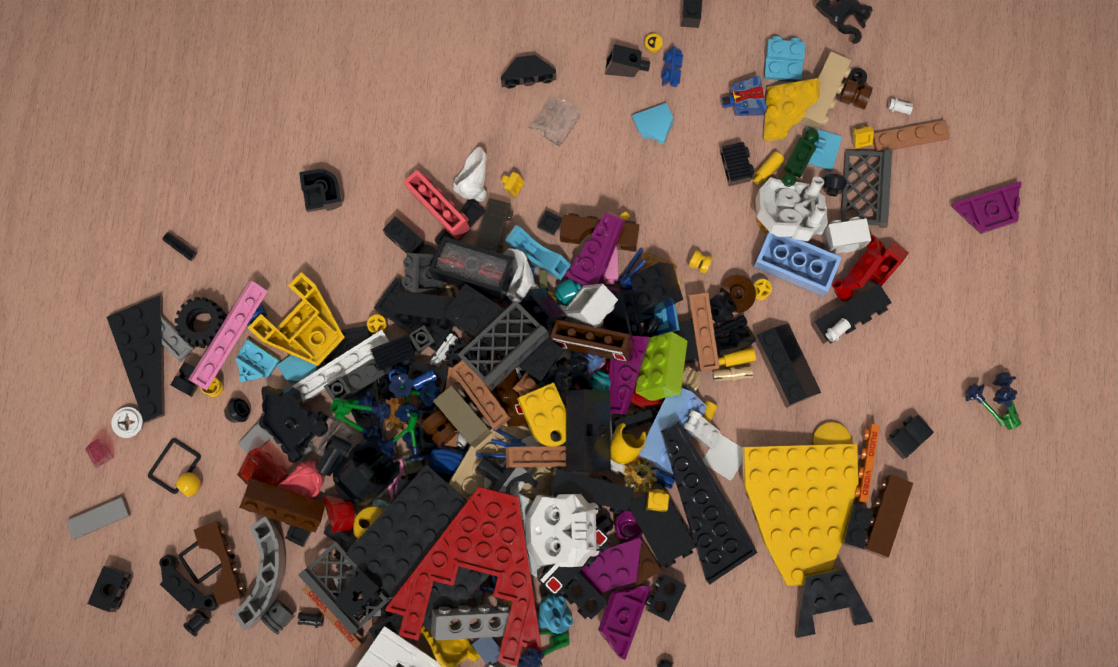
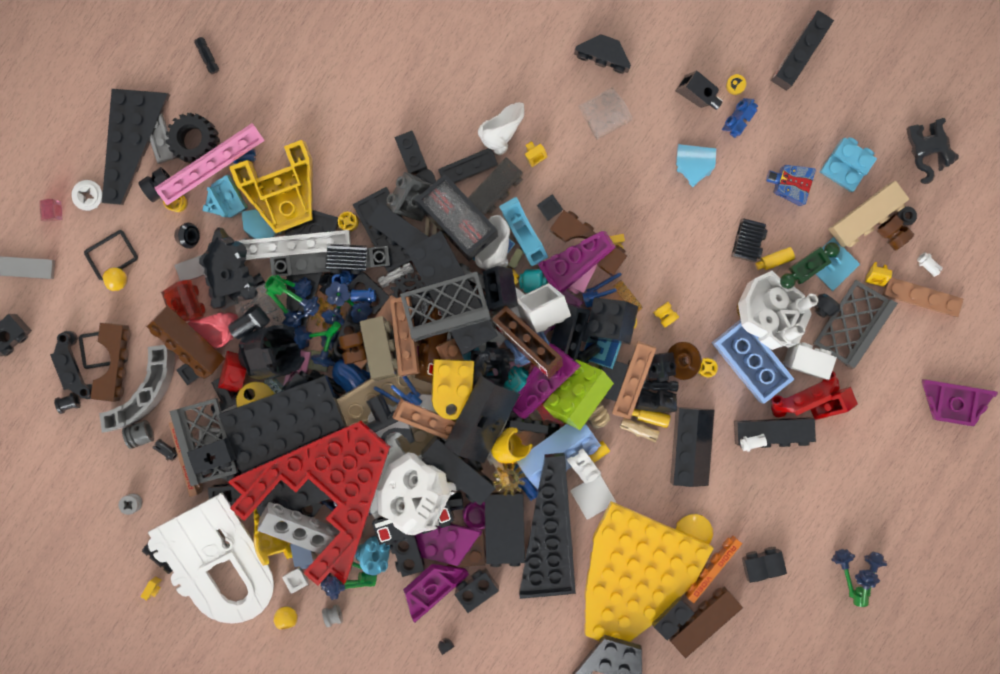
camera: 25 degrees right, 10 degrees up
(320, 190) = (357, 69): black brick -> none
(434, 202) = (454, 132): coral brick -> none
(657, 500) = (511, 508): yellow brick -> none
(787, 106) = (826, 212): yellow plate -> none

